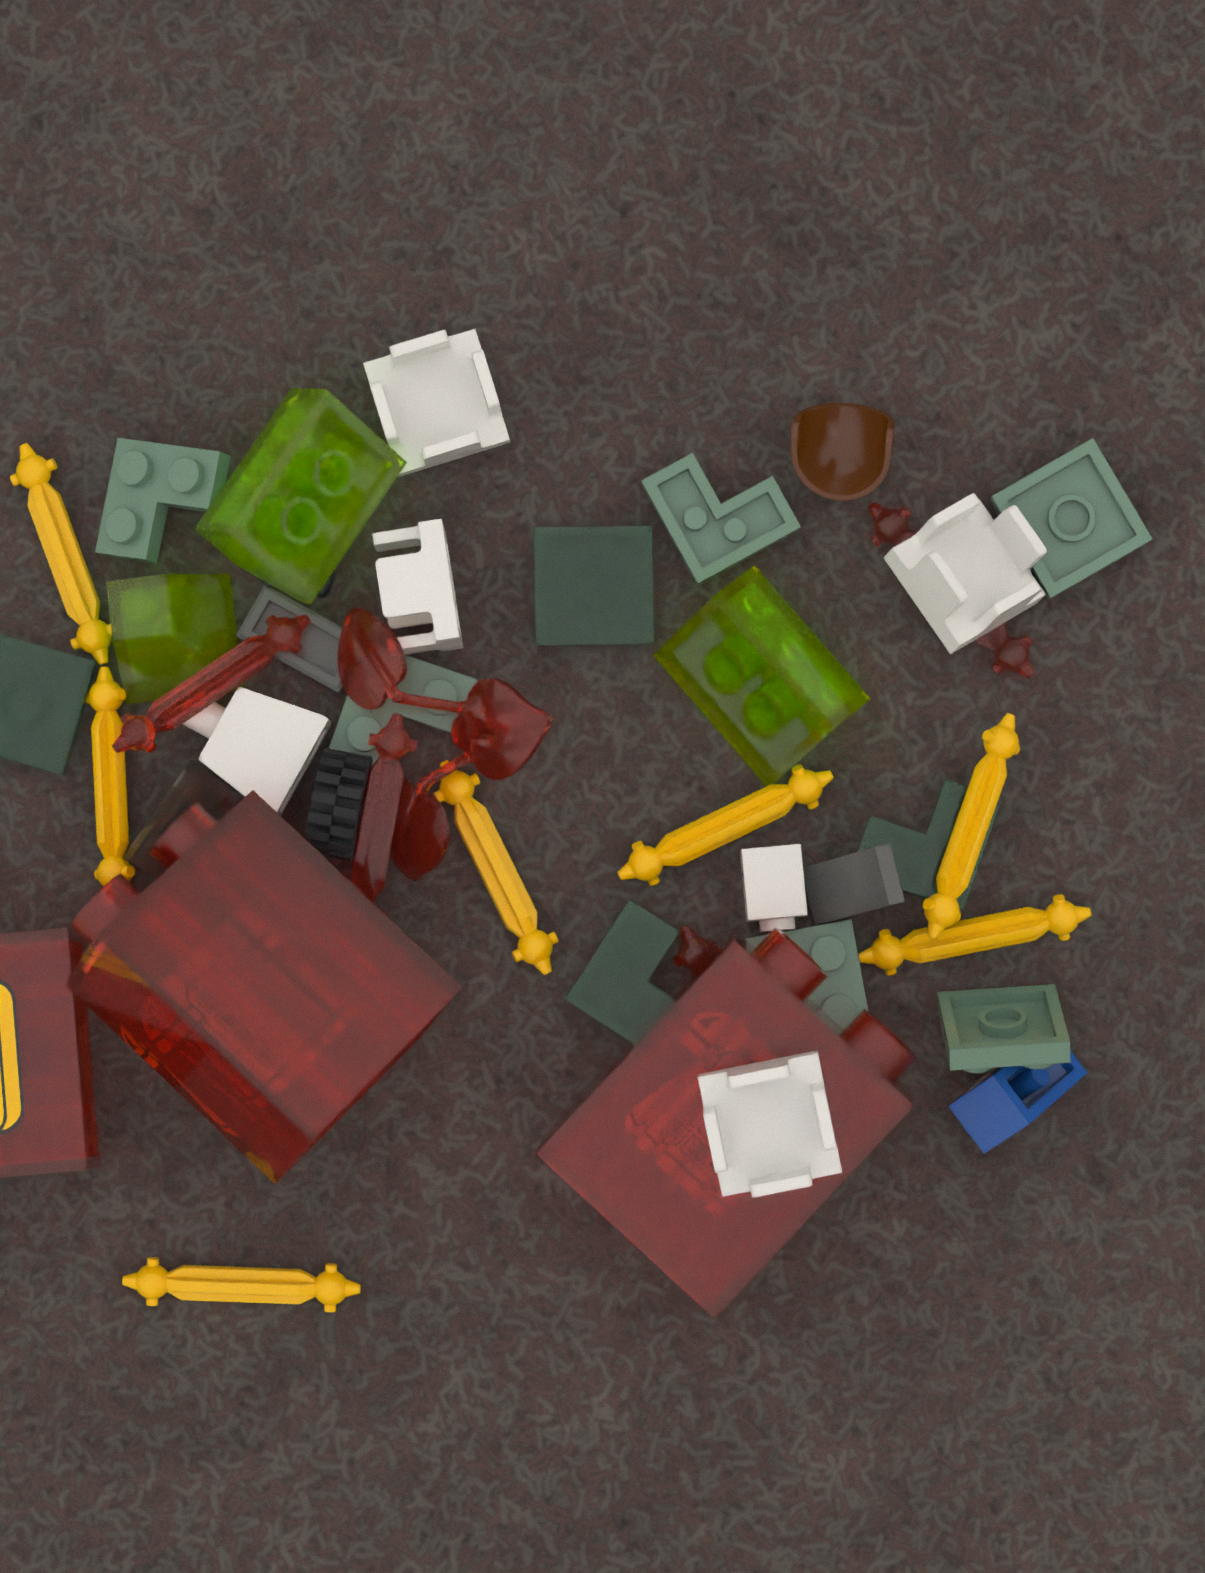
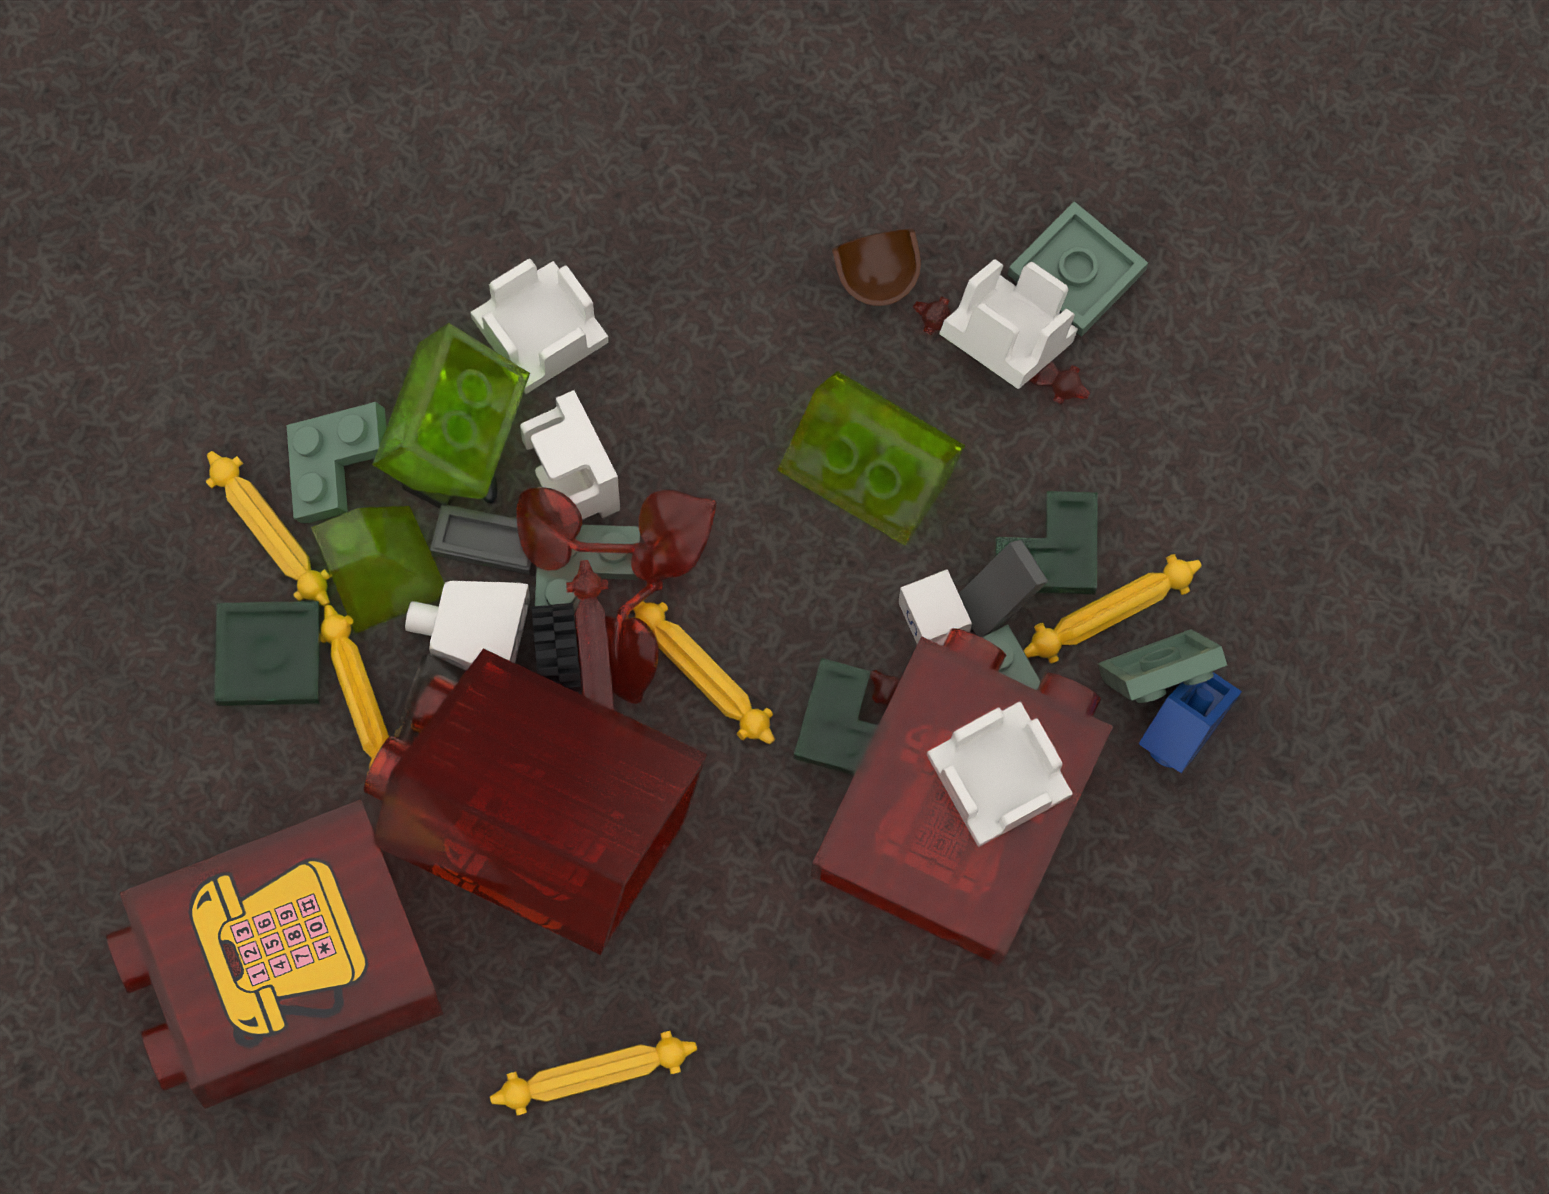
camera: 20 degrees left, 15 degrees down
(211, 683) = (421, 585): clear red wheel -> none
(593, 586) = (712, 428): clear green plate -> none
(715, 534) = (794, 360): sand green plate -> none
(725, 825) = (879, 582): yellow wheel -> none
(971, 826) = (1081, 518): yellow wheel -> none

